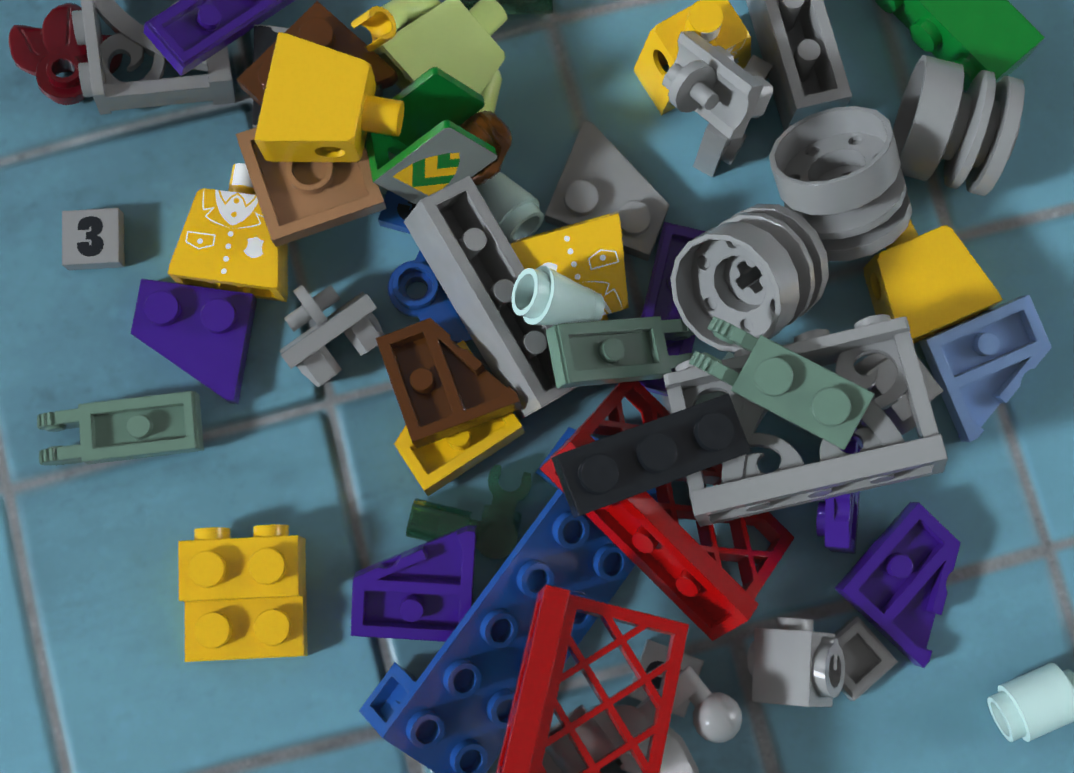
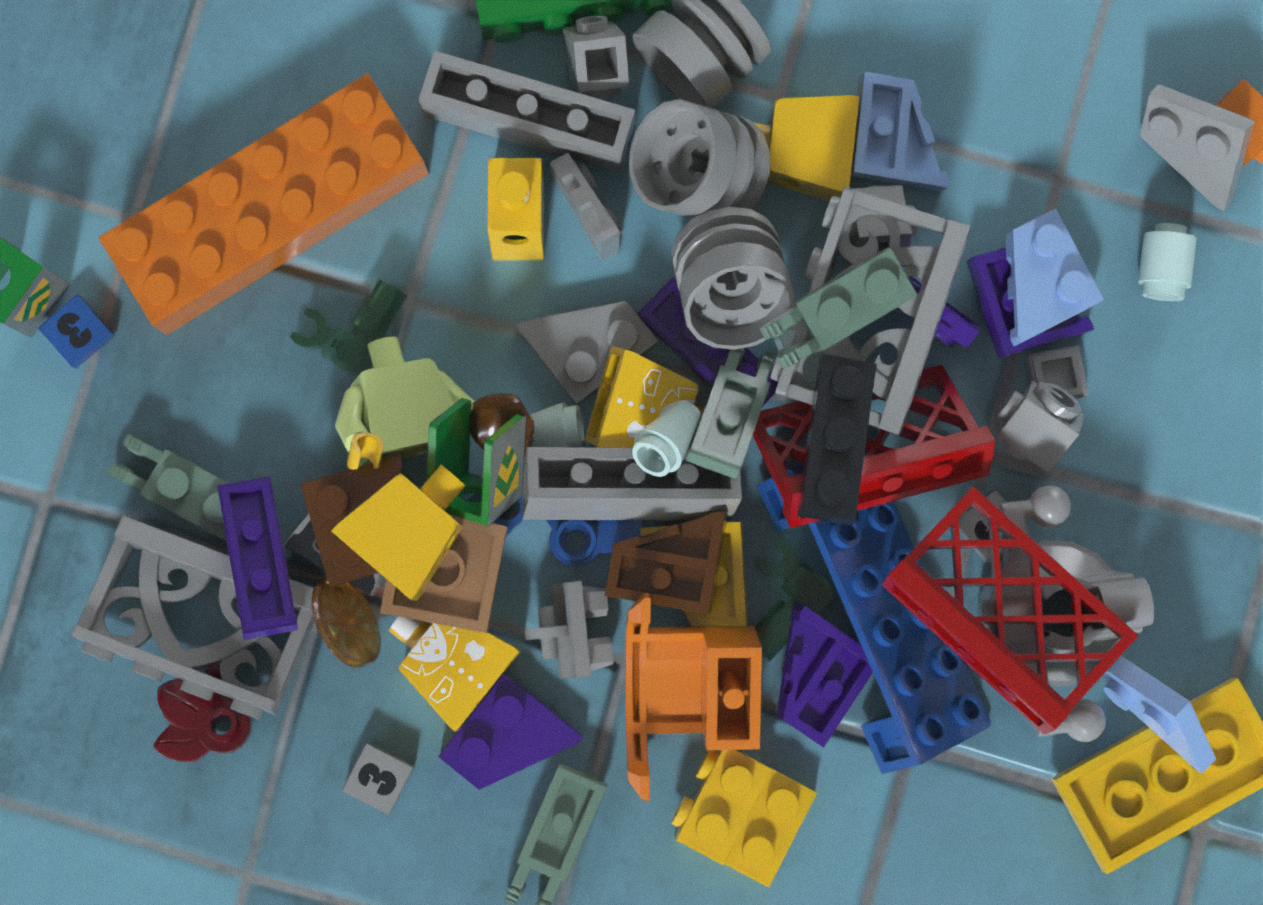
camera: 65 degrees left, 5 degrees up
(209, 118) = (346, 623): none -> clear orange wheel
(334, 464) = (688, 684): none -> orange piece
(715, 86) = (573, 216): light grey hips -> none
(878, 41) = (596, 57): none -> light grey brick
(945, 587) = (1046, 277): none -> light blue wing

